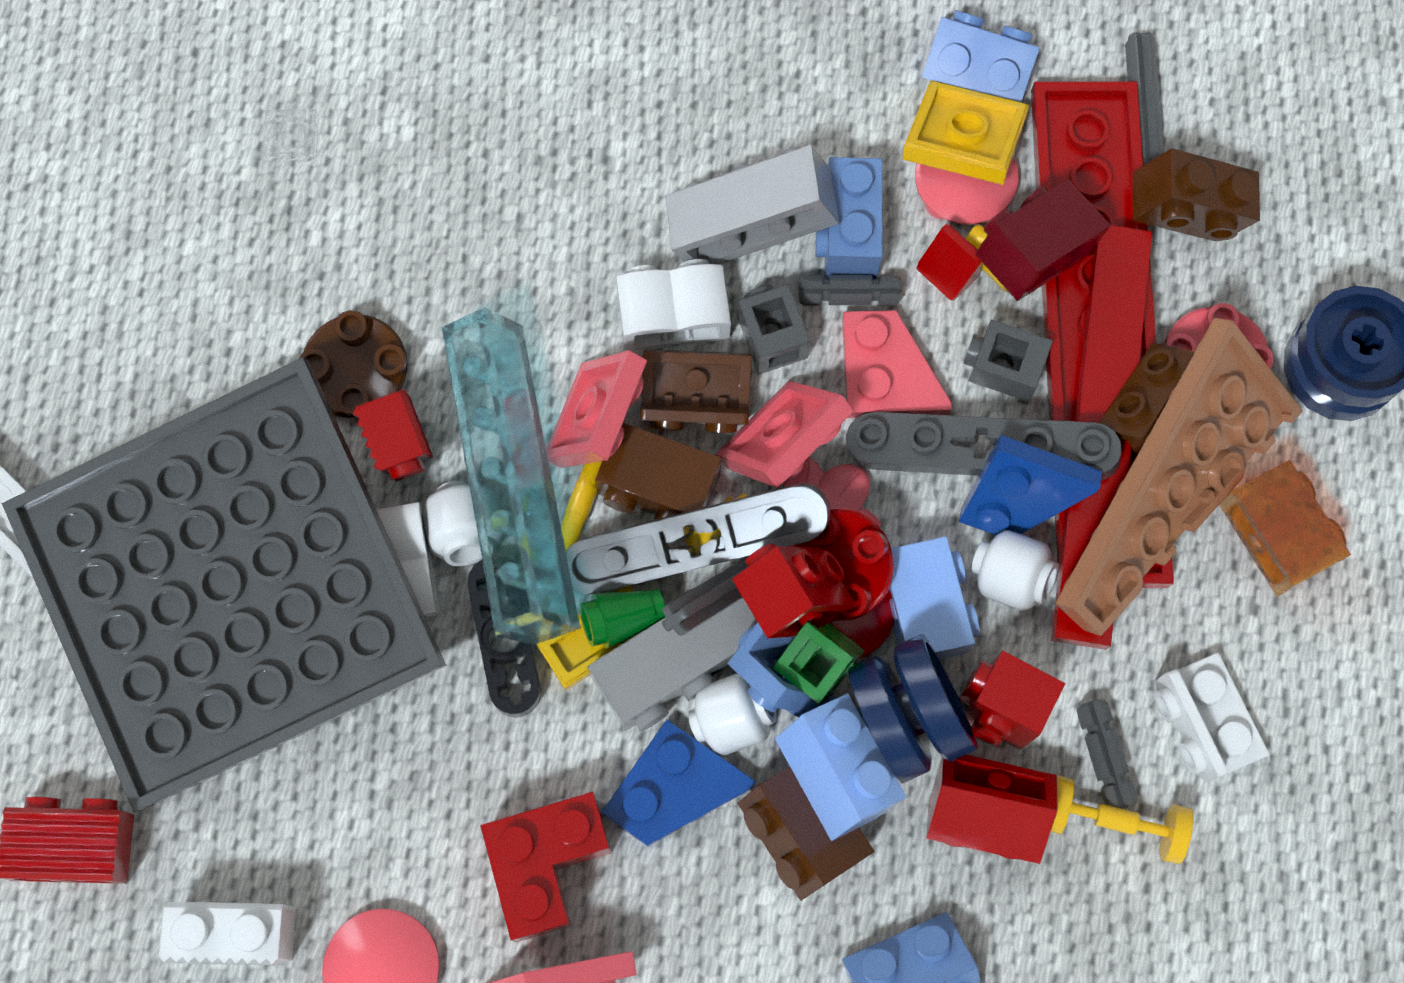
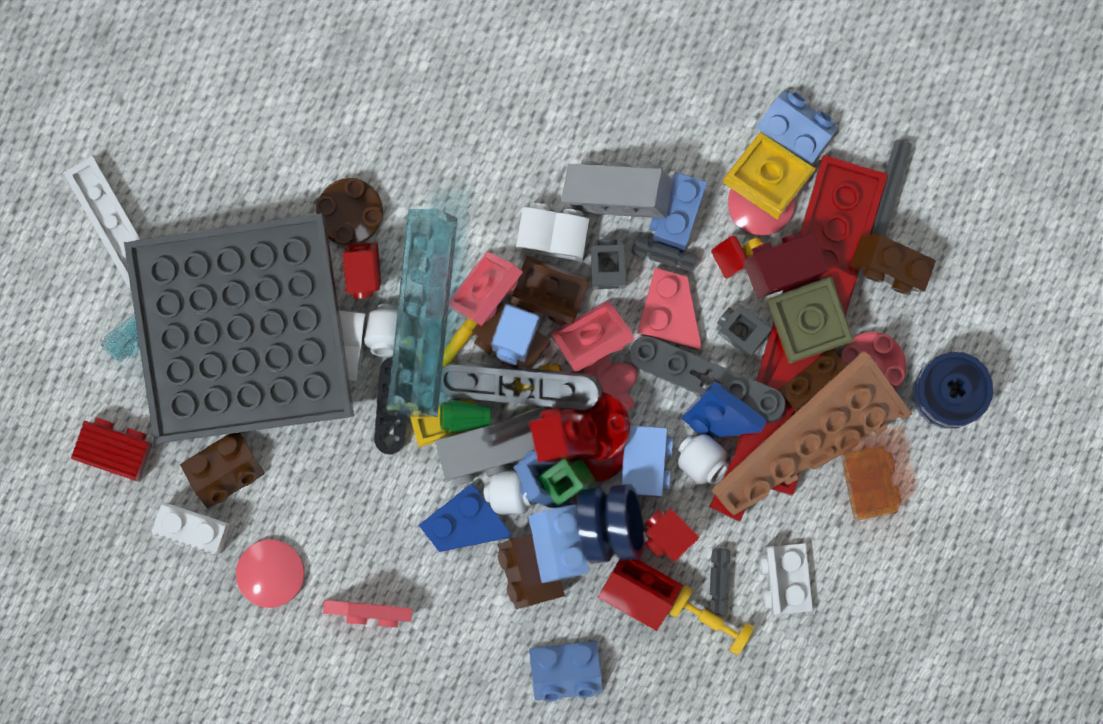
camera: 15 degrees right, 10 degrees up
(40, 665) = (122, 340): none -> clear light blue cone
(257, 821) = (222, 469): none -> reddish brown bracket
(529, 851) = (370, 536): red brick -> none
(665, 453) = (515, 335): none -> light blue brick
(1107, 309) = (810, 320): none -> olive tile

